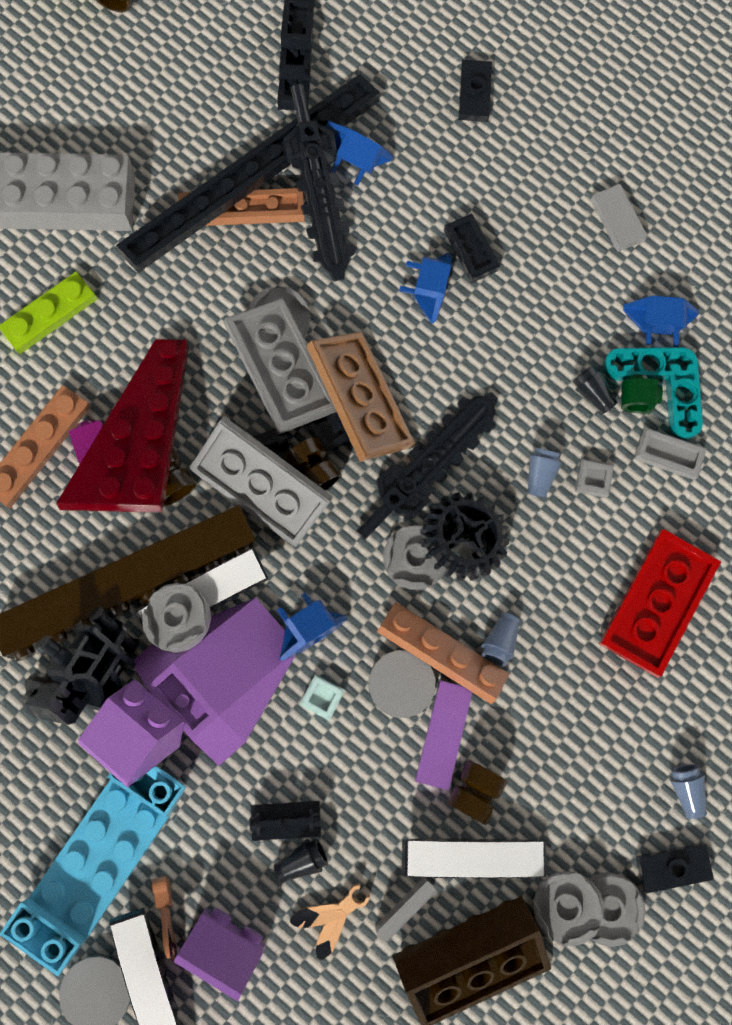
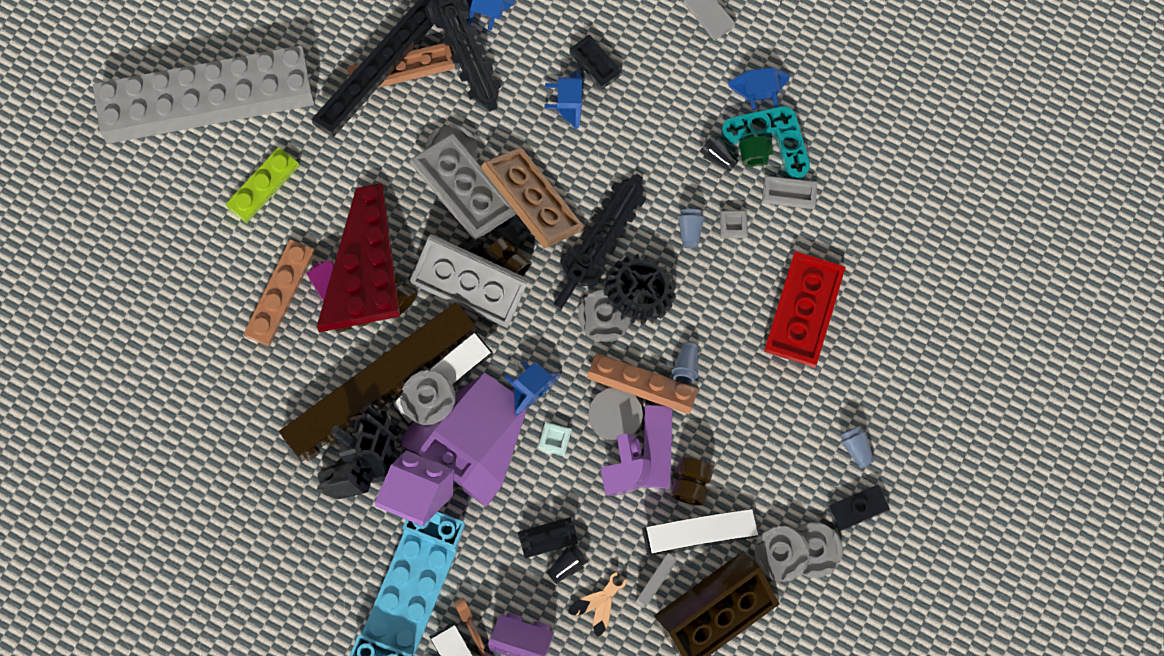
camera: 10 degrees left, 5 degrees down
(400, 766) = (628, 474): none -> medium lavender brick

